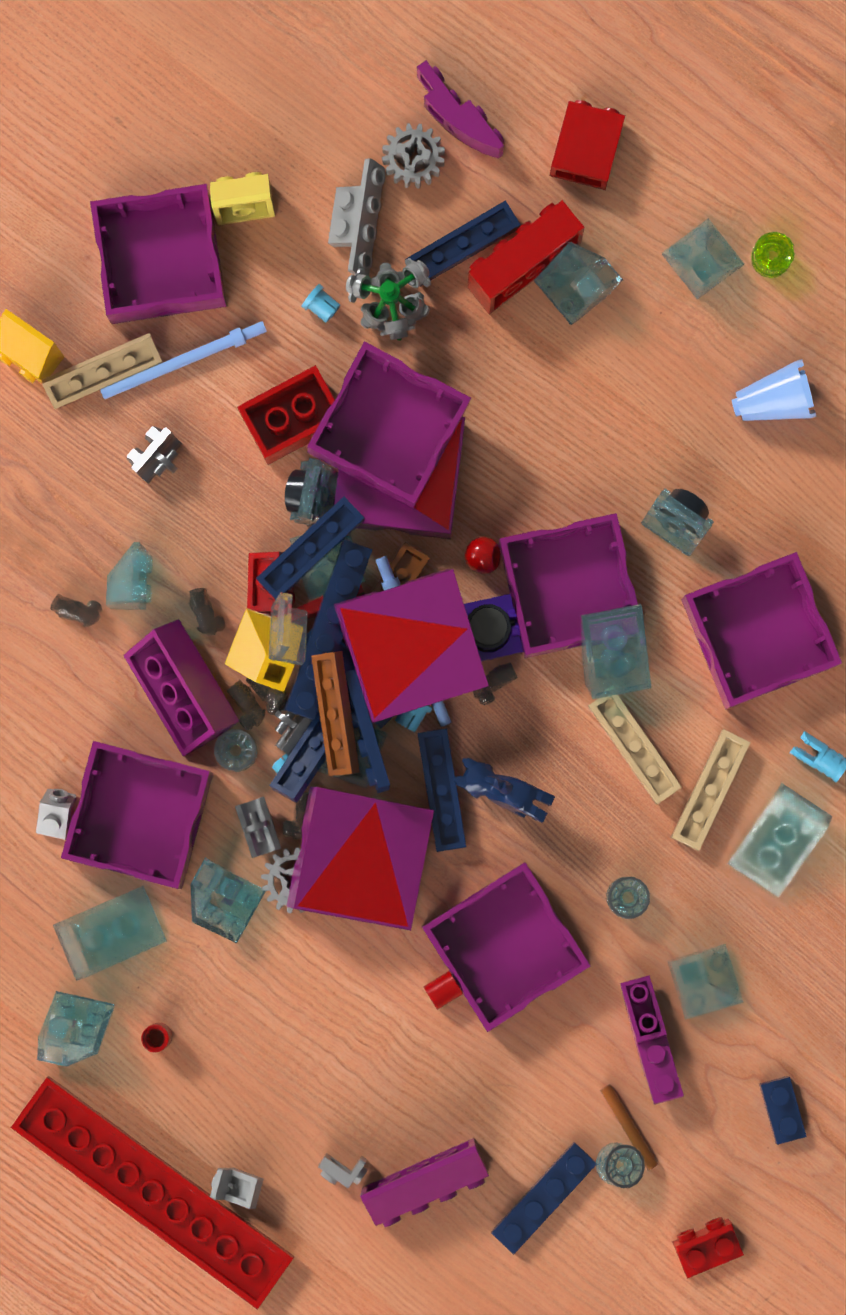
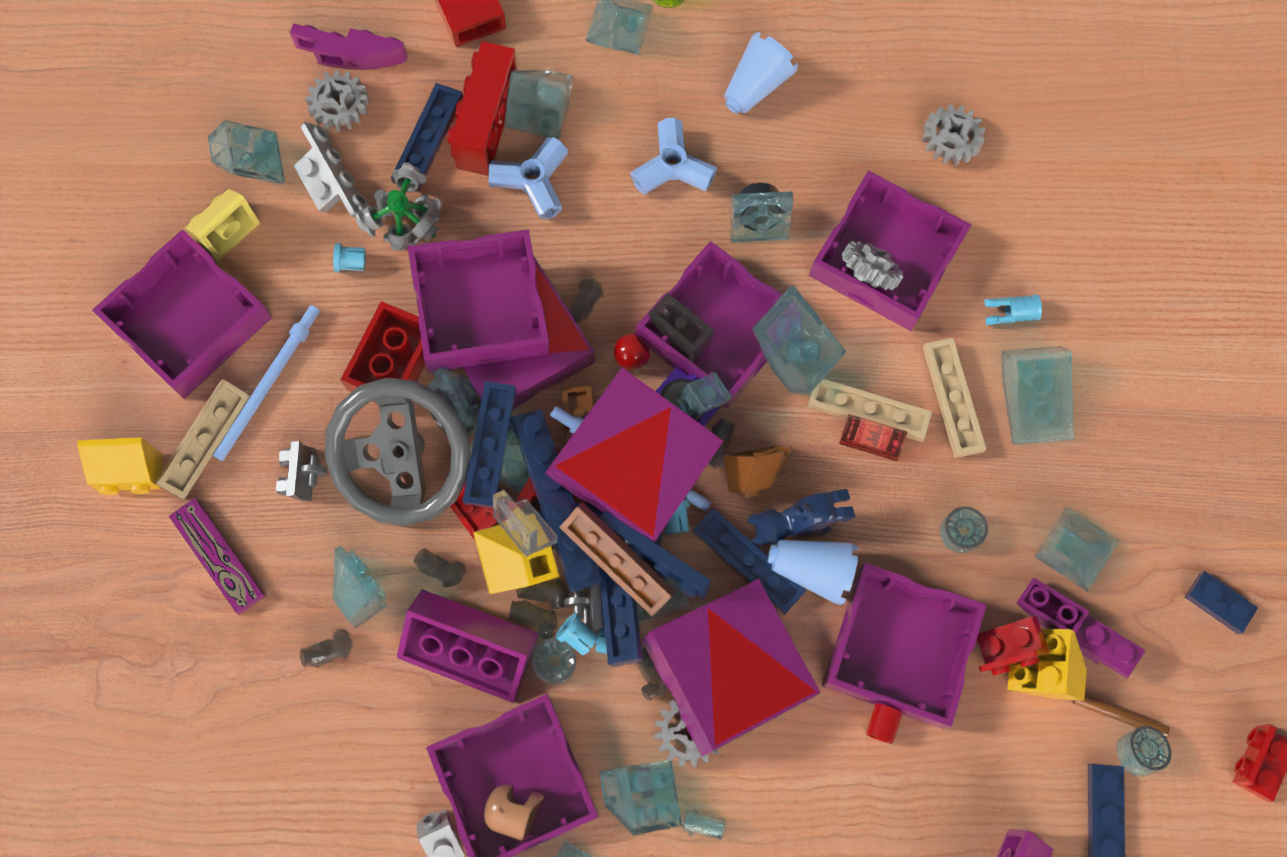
camera: 45 degrees left, 10 degrees down
(47, 473) = (217, 556): none -> magenta tile
(115, 836) = (507, 816): none -> nougat helmet
(239, 499) = (399, 451): none -> dark grey piece
(251, 954) = (703, 825): none -> clear light blue pin
(258, 827) = (624, 710): flat silver hips -> none
(266, 744) = (577, 634): none -> medium azure bush
(306, 150) = (246, 151): none -> clear light blue slope
(481, 483) = (583, 303): none -> clear smoke arm
(486, 834) = (816, 565): none -> light blue cone
(504, 637) = (703, 396): none -> clear light blue bracket
(504, 723) = (755, 469): none -> dark orange slope
(517, 362) = (540, 191): none -> light blue piece
(534, 566) = (683, 328): none -> clear smoke slope
(586, 1010) = (1012, 644): none -> red bracket
(603, 1046) = (1058, 674): none -> yellow slope
(618, 771) = (873, 437): none -> clear red tile
(656, 403) = (672, 148): none -> light blue piece
(731, 634) = (872, 265): none -> light grey gear

